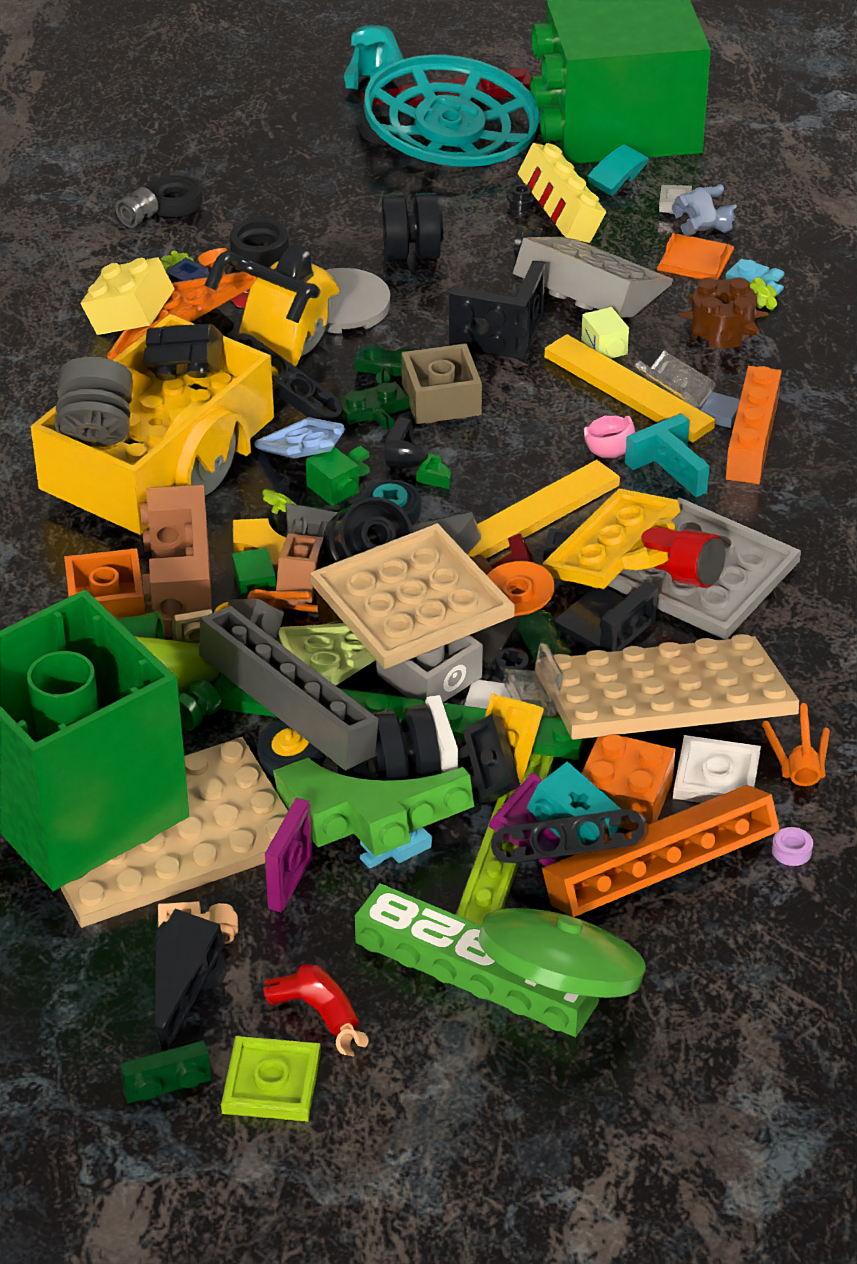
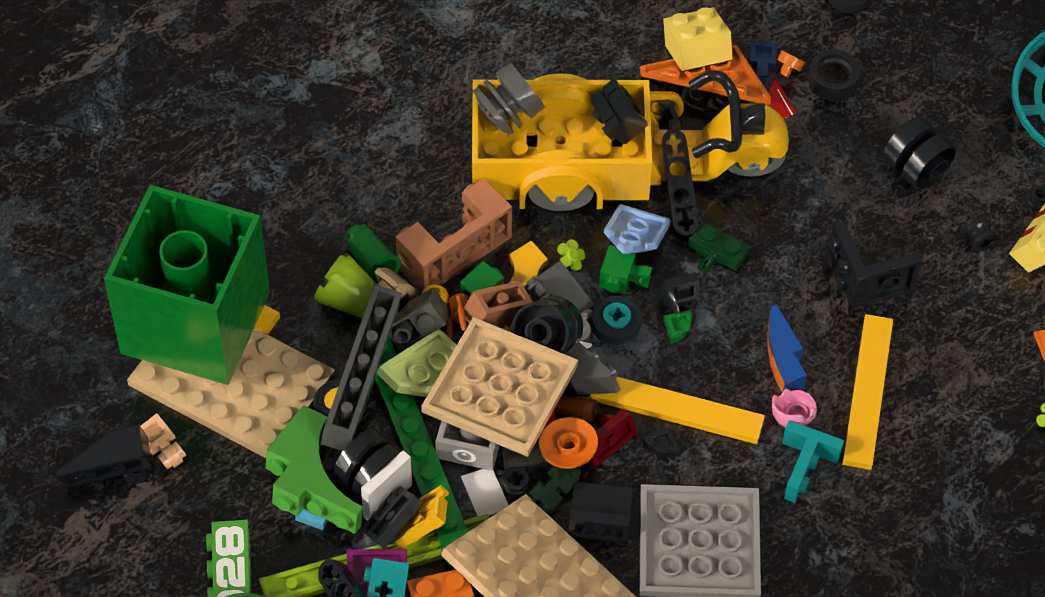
camera: 55 degrees right, 15 degrees up
(110, 578) = (395, 208): orange brick -> none
(165, 1072) = (44, 503): dark green plate -> none
(169, 261) = (779, 37): lime plant -> none
(197, 703) = (341, 327): green wheel -> none
(271, 1078) = (75, 554): lime tile -> none
(288, 855) = (236, 456): magenta tile -> none
(326, 996) = (147, 548): red arm -> none
(361, 300) = (820, 161): light grey tile -> none
(380, 362) = (767, 231): dark green plate -> none
(441, 383) = (760, 275): dark tan brick -> none
(537, 414) = (784, 353): none -> blue slope
(537, 686) = (489, 504): clear panel -> none
(591, 275) = (977, 295): light grey slope -> none
(605, 332) = (910, 343): yellowish green brick -> none
(635, 534) = (673, 486): yellow plate -> none
(678, 379) = (891, 416): clear panel -> none
(721, 408) = (891, 463): sand blue tile -> none
(723, 312) = (999, 405): reddish brown brick -> none
(753, 425) = (881, 492): orange brick -> none

